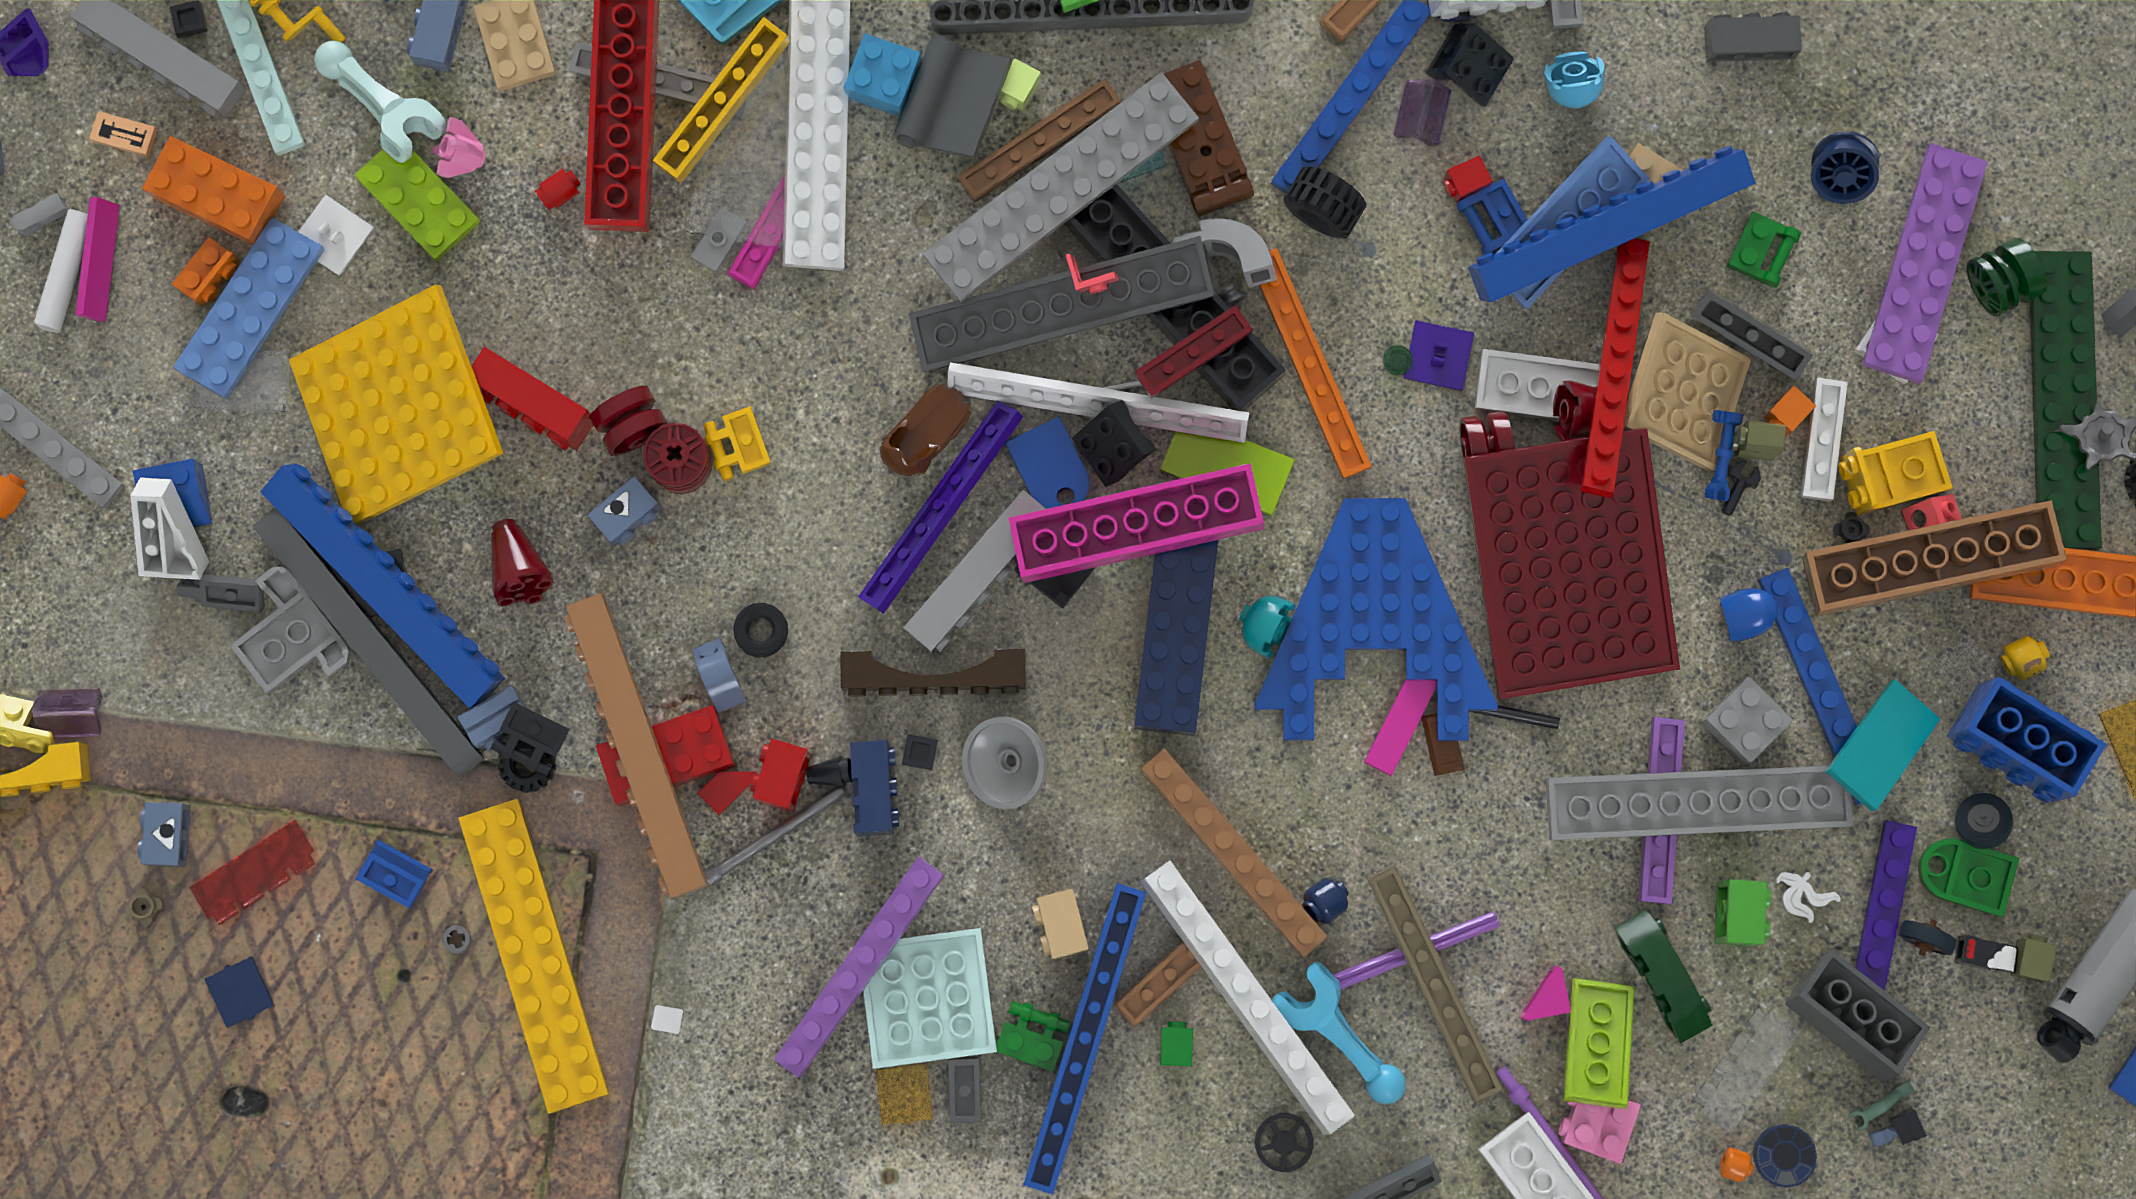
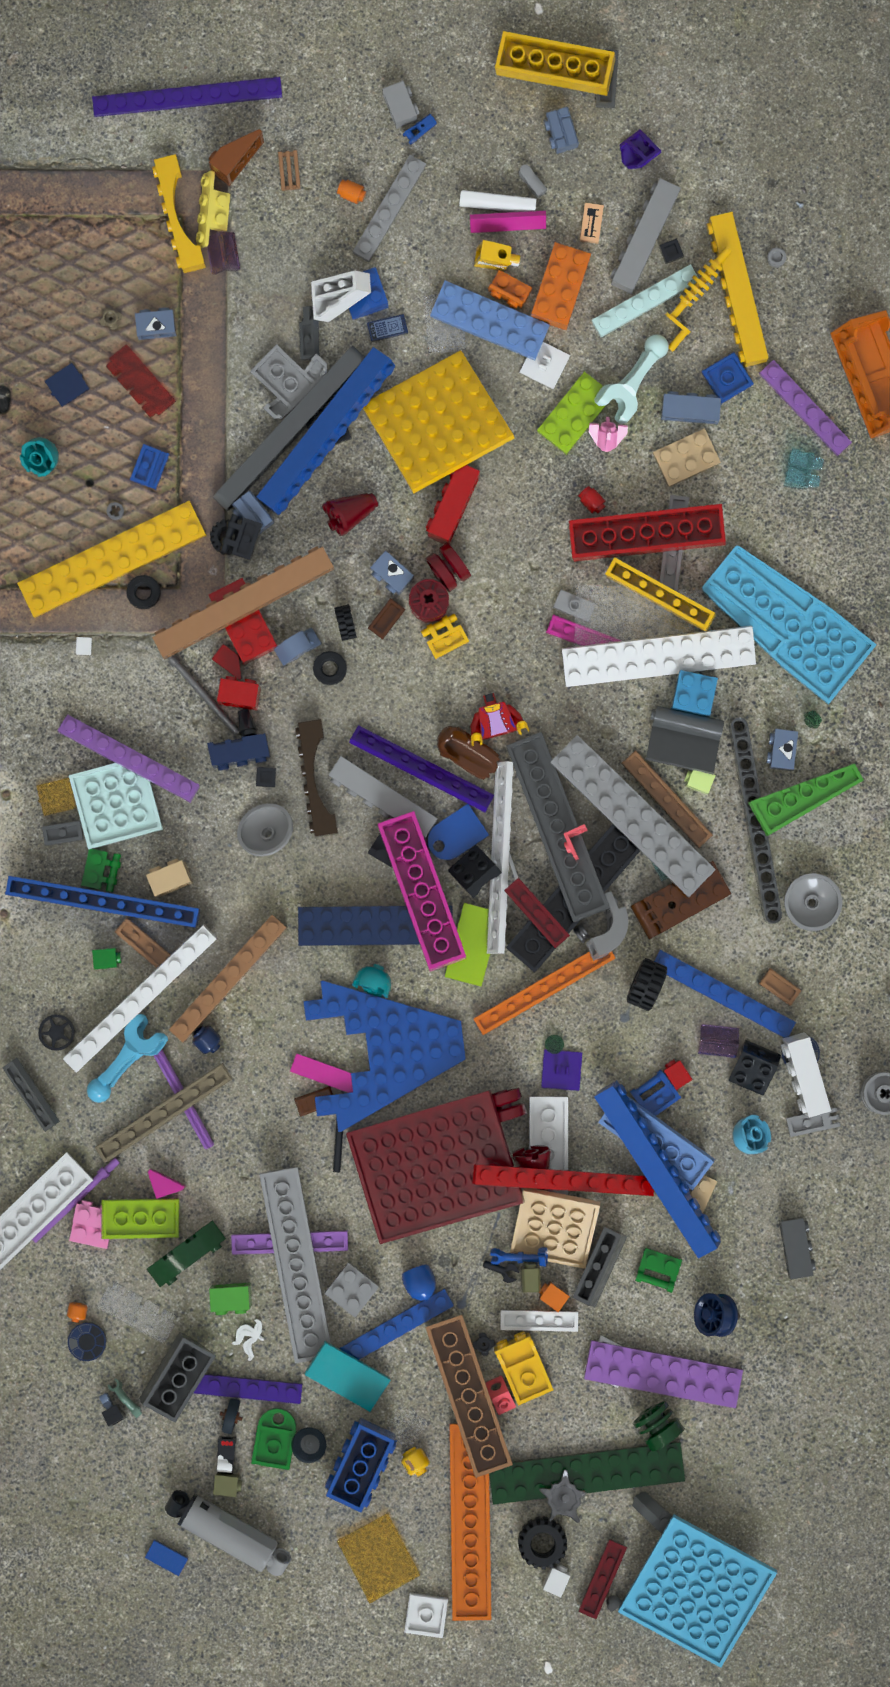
camera: 80 degrees right, 5 degrees up
(148, 286) = (495, 256): none -> yellow torso
(234, 469) = (387, 328): none -> tile
(348, 1049) = (39, 456): none -> teal cylinder
(581, 897) = (143, 603): none -> black tyre
(692, 593) = (345, 622): none -> black tyre
(695, 530) = (386, 618): none -> reddish brown tile
(881, 380) = (495, 720): none -> torso

